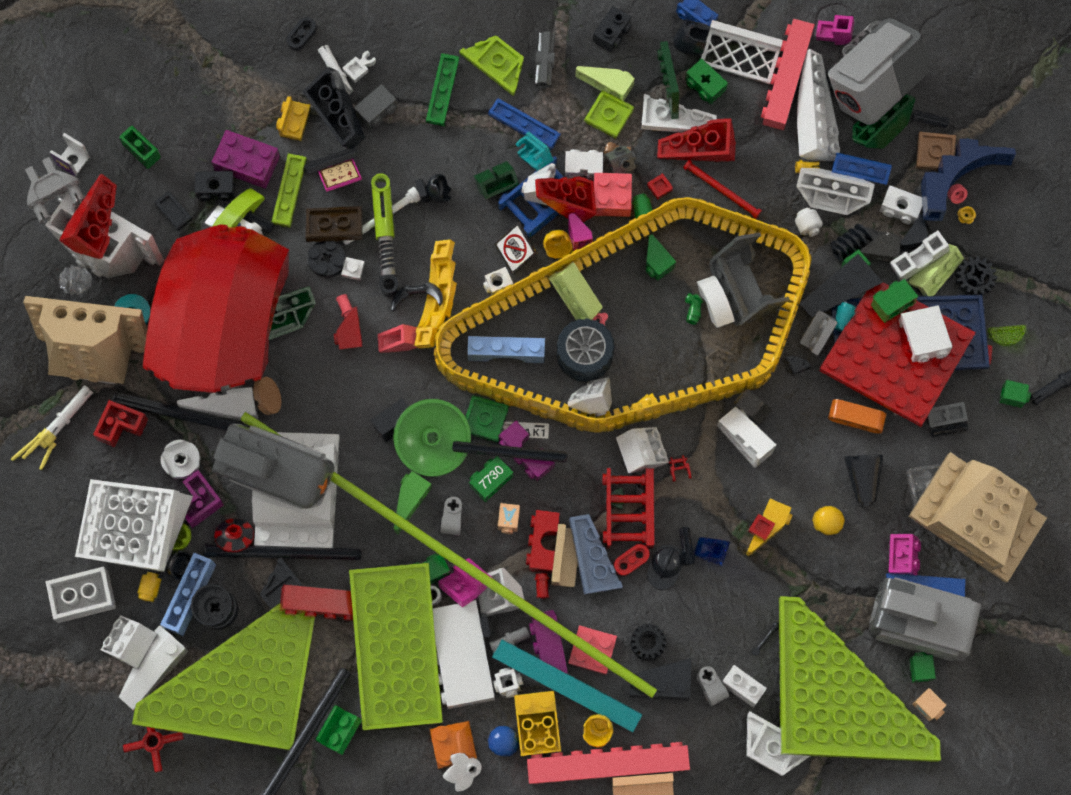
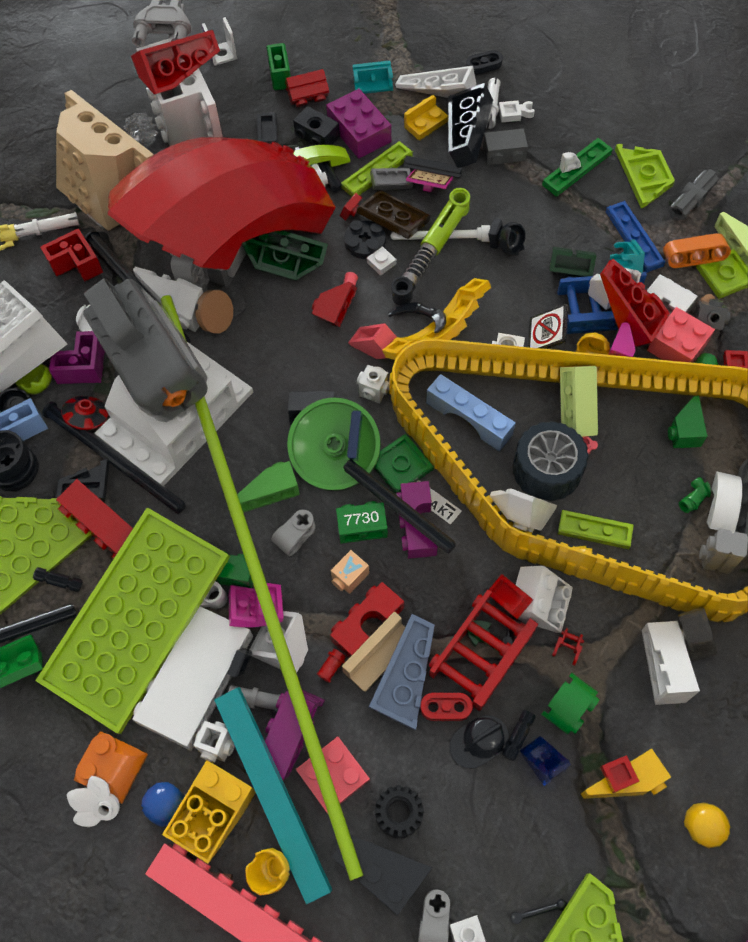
camera: 40 degrees right, 10 degrees down
(178, 152) = (307, 87): none -> red brick
(222, 107) = (373, 77): none -> teal hinge
(282, 79) = (439, 82): none -> white wedge
(297, 239) = (351, 207): none -> red plate
(308, 193) = (390, 178): none -> flat silver plate
(319, 659) = (57, 579): none -> black axle
(424, 379) = (373, 383): none -> white brick
(437, 93) = (569, 162): none -> white tile
(446, 423) = (354, 435): none -> dark blue tile
(578, 111) = (696, 250): none -> orange beam
(623, 462) = (510, 596): none -> red tile
(644, 376) = (595, 529): none -> lime tile
(705, 505) = (570, 704): none -> green brick
(735, 338) = (724, 551): none -> light grey brick

